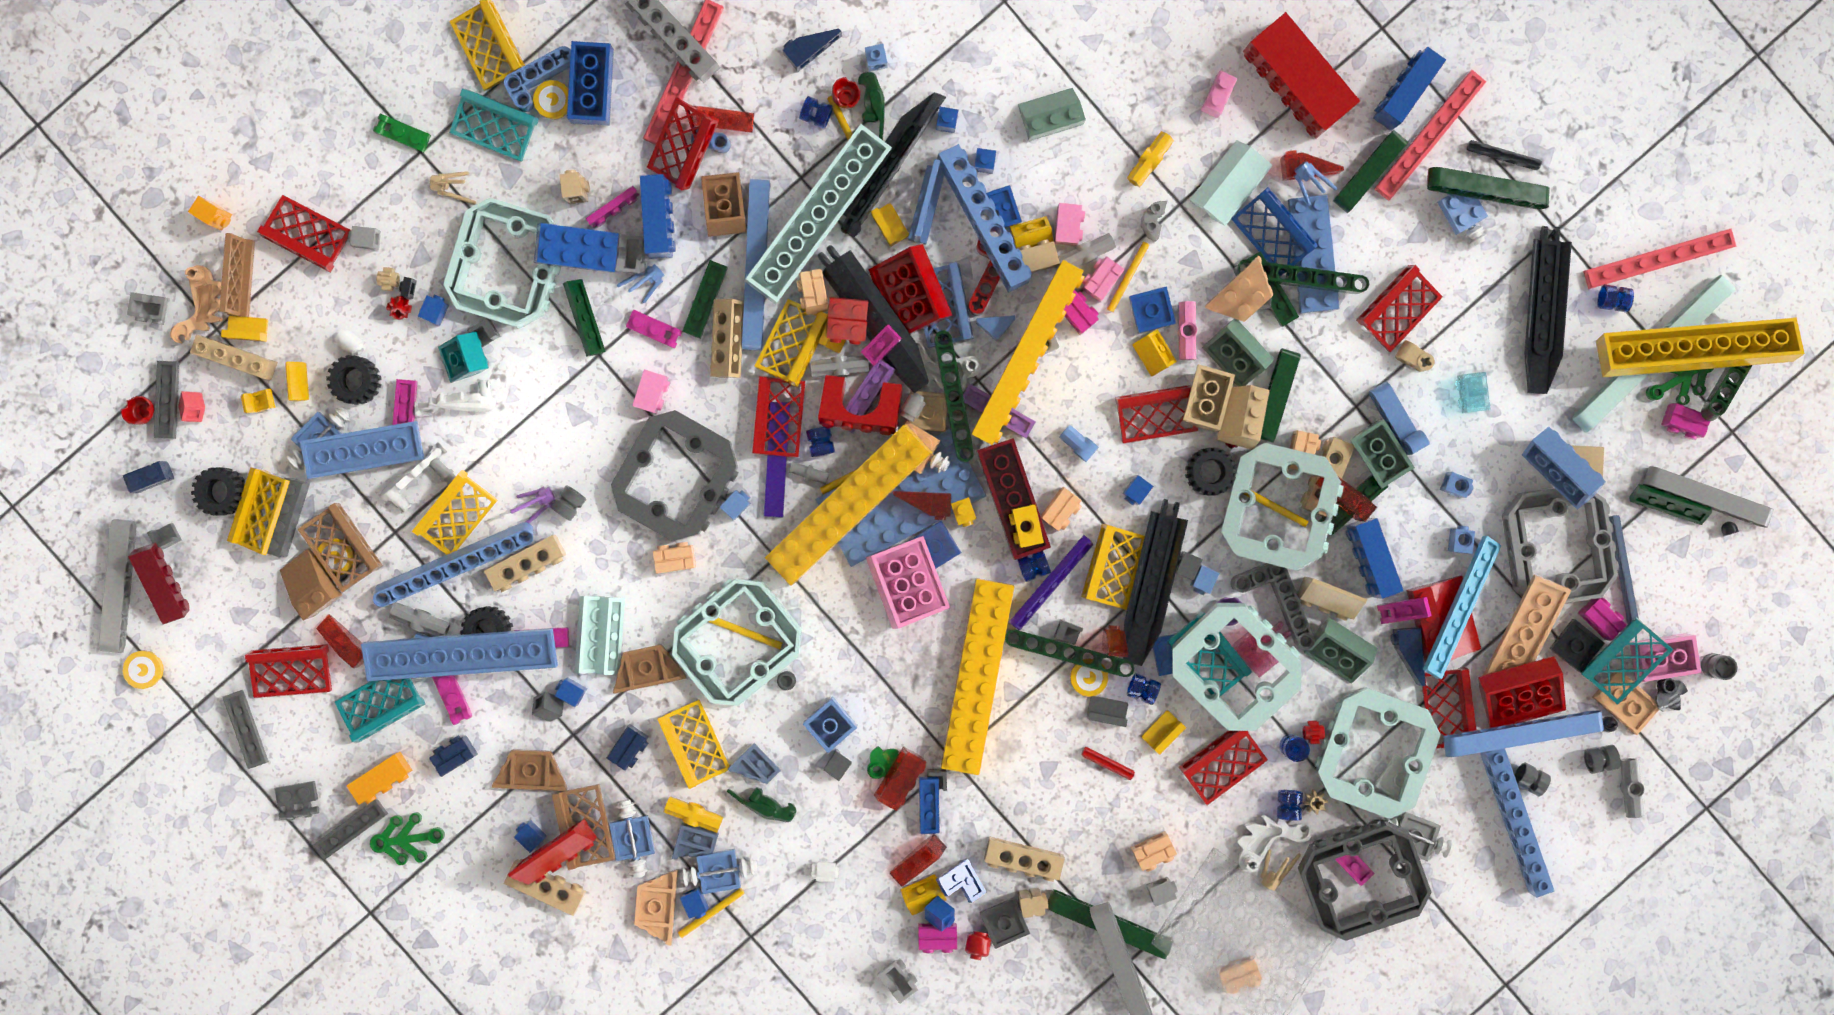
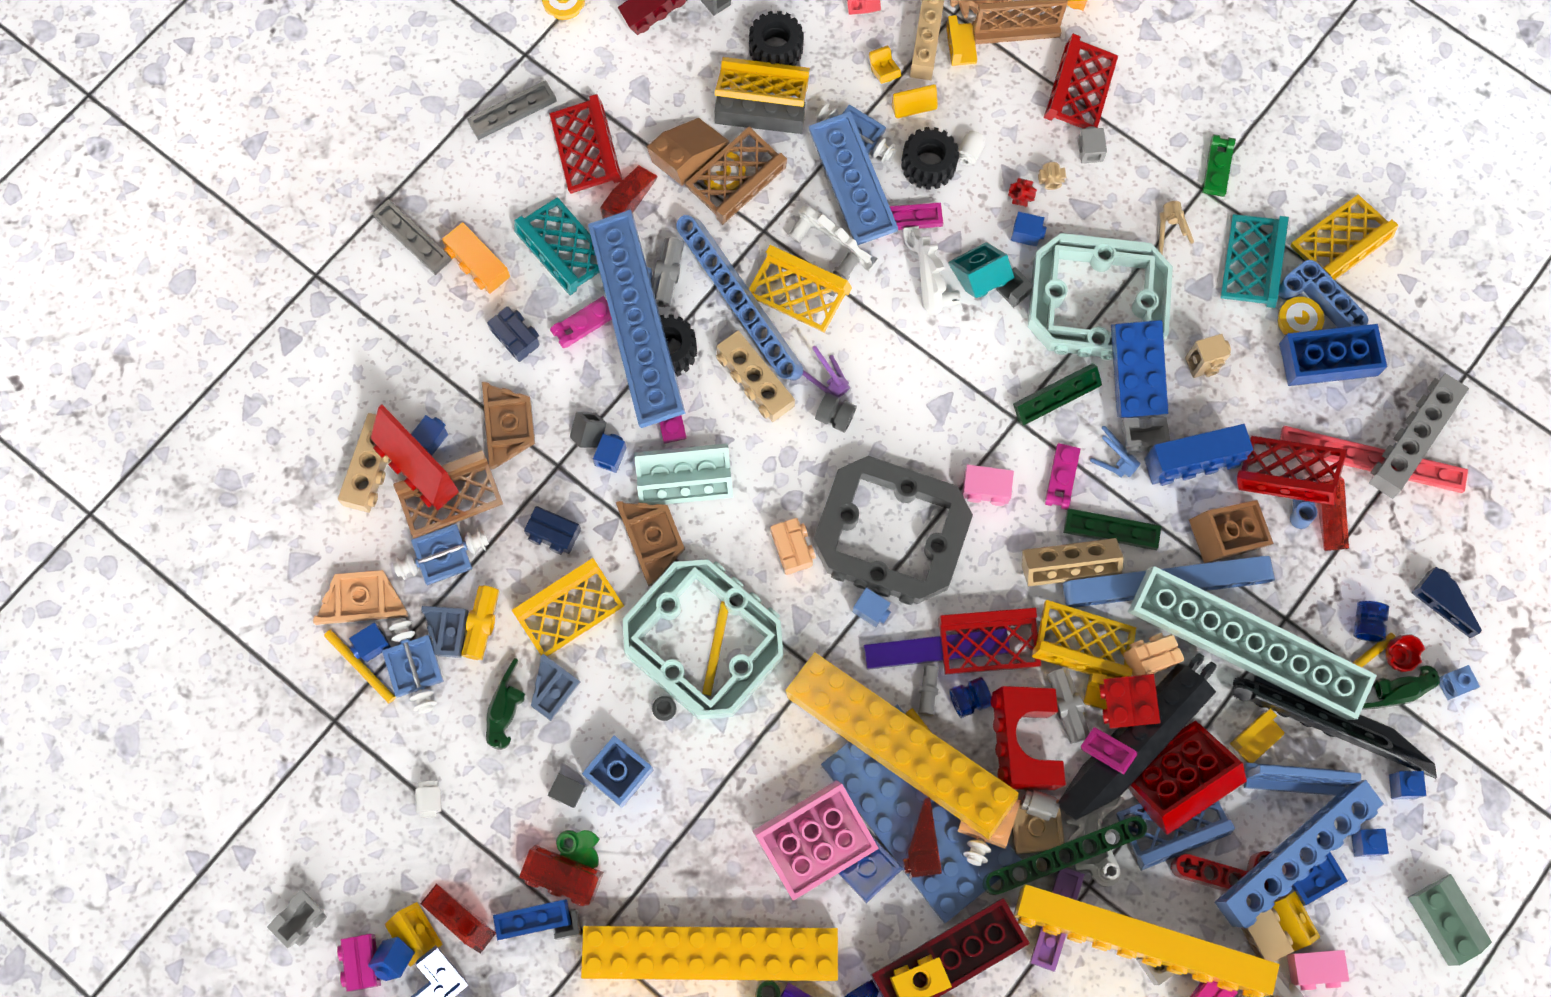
camera: 90 degrees right, 15 degrees down
(297, 794) = (445, 175): dark grey plate -> none
(404, 840) = (406, 296): green plant -> none
(407, 287) = (1047, 198): black plate -> none
(613, 207) = (1195, 404): dark pink plate -> none
(869, 389) = (1049, 747): medium lavender plate -> none
(963, 512) = (919, 896): yellow bracket -> none
(995, 325) = (1165, 895): medium blue slope -> none

